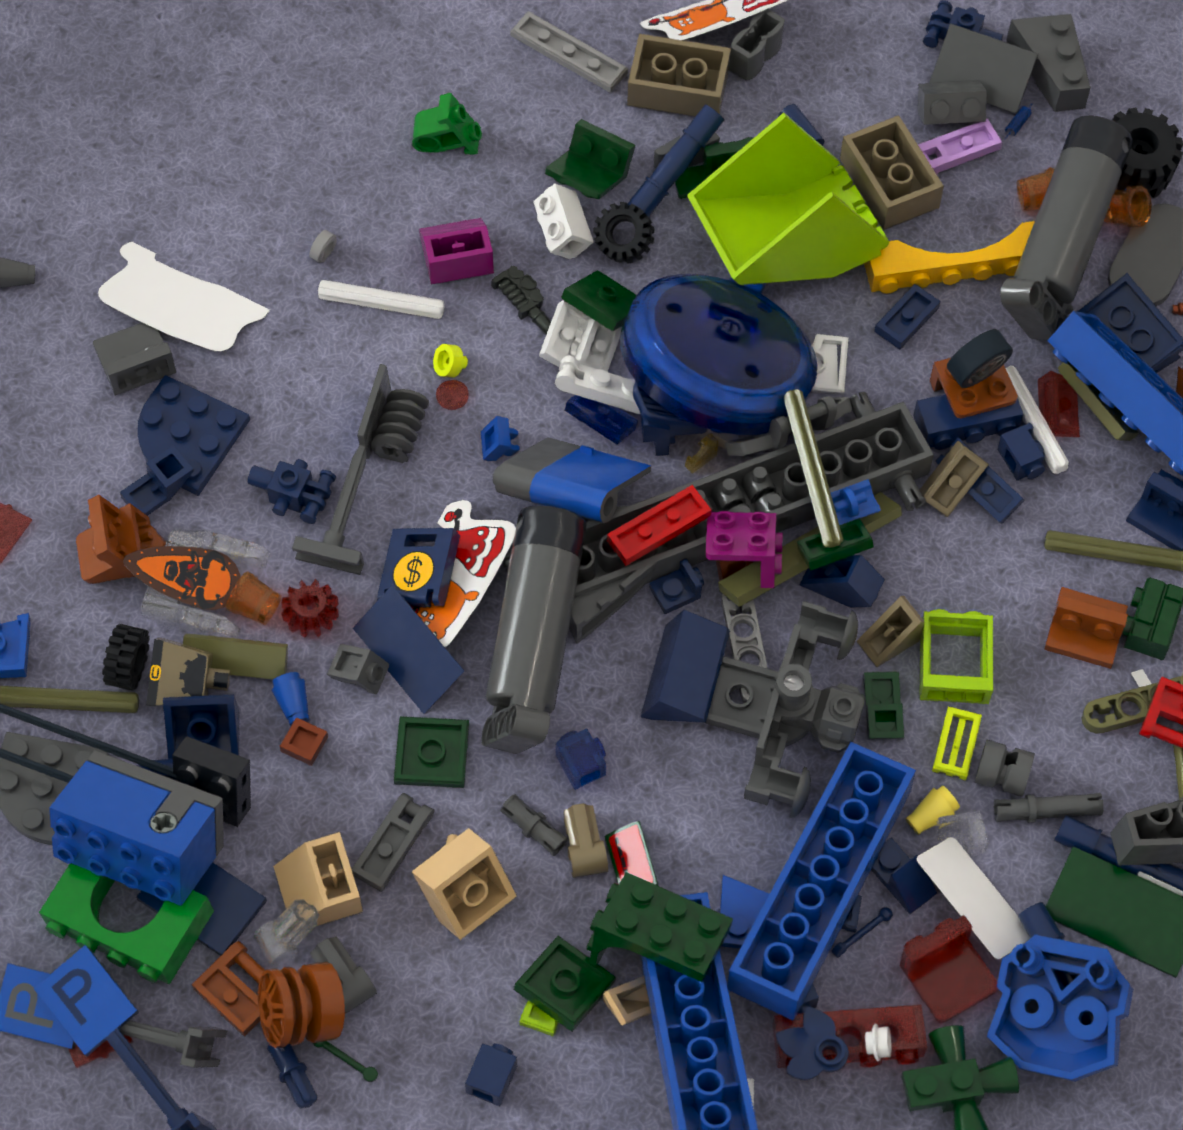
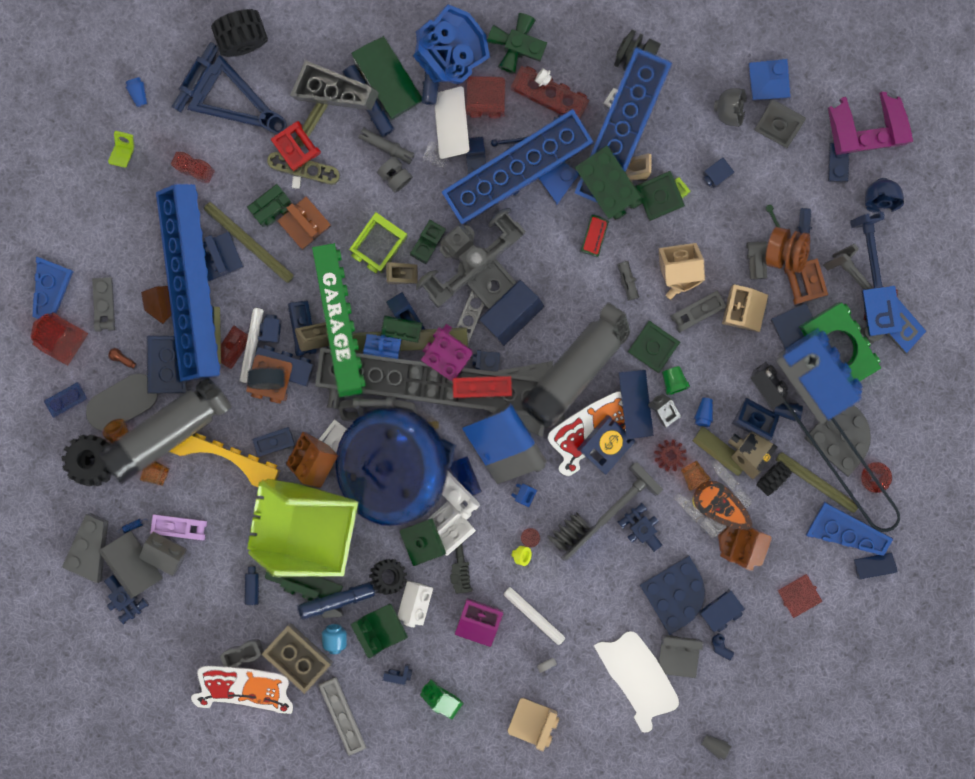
camera: 145 degrees left, 25 degrees up
(77, 398) = (719, 647): none -> dark blue arm
(103, 442) = (722, 611): none -> dark blue brick
(163, 479) = (708, 570): dark blue slope -> none
(281, 936) = (773, 291): clear piece -> none
(296, 170) = (533, 723): none -> tan bracket
(304, 741) = (712, 384): copper tile -> none
(367, 715) = (674, 380): none -> green piece
(524, 125) = (395, 677): none -> dark blue bracket
(581, 757) = (587, 299): clear blue brick -> none
(585, 848) = (612, 253): dark tan piece -> none
(645, 127) = (334, 639): none -> dark azure head
(808, 1043) = (575, 96): dark blue plate -> none
(813, 468) = (389, 369): axle -> none
(836, 315) = (311, 460): none -> dark orange slope
(891, 172) = (225, 529): dark tan brick -> none
(934, 805) = (440, 176): light yellow cone -> none
(937, 503) = (337, 320): none -> green brick
(950, 768) = (411, 208): neon yellow tile -> none

